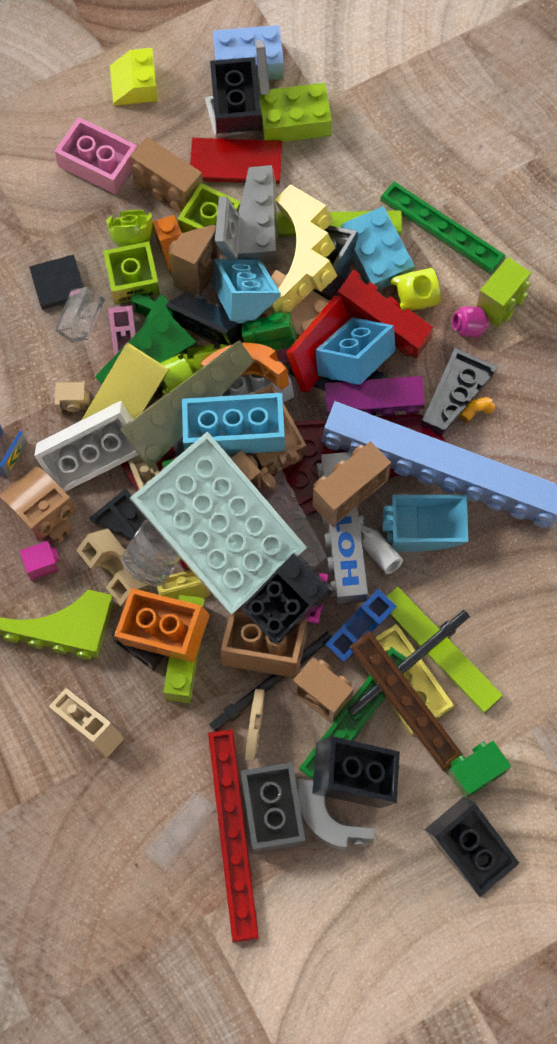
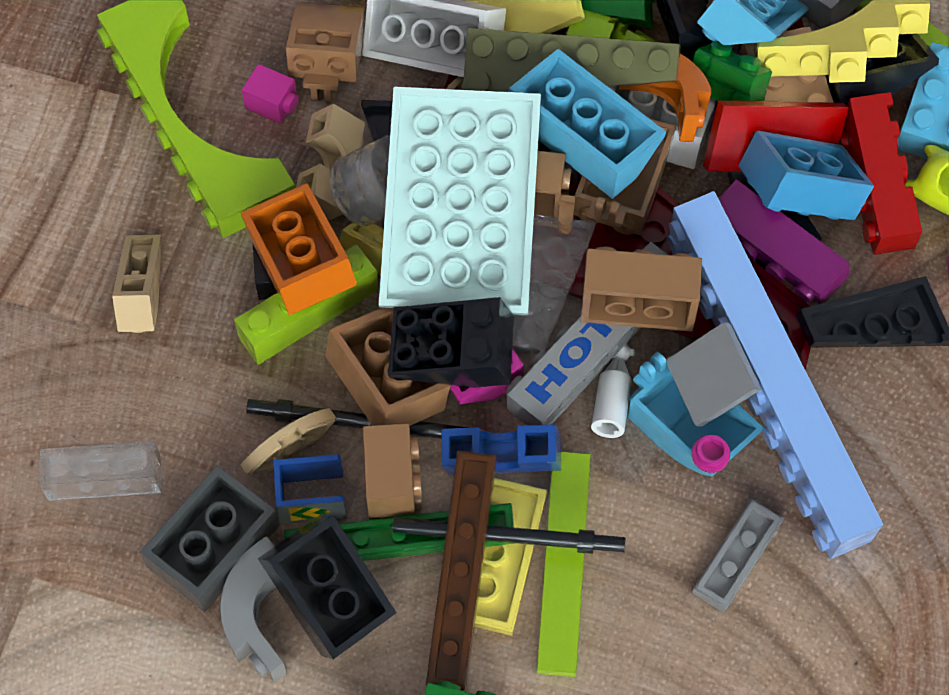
camera: 45 degrees right, 5 degrees down
(233, 836) = (121, 556): red tile -> none
(275, 732) = (307, 470): none -> blue piece
(423, 492) = (713, 374): none -> light grey tile
(458, 531) = (710, 453): none -> dark pink plate
(477, 405) = (883, 356): light orange arm -> none
(511, 567) = (737, 556): none -> light grey tile

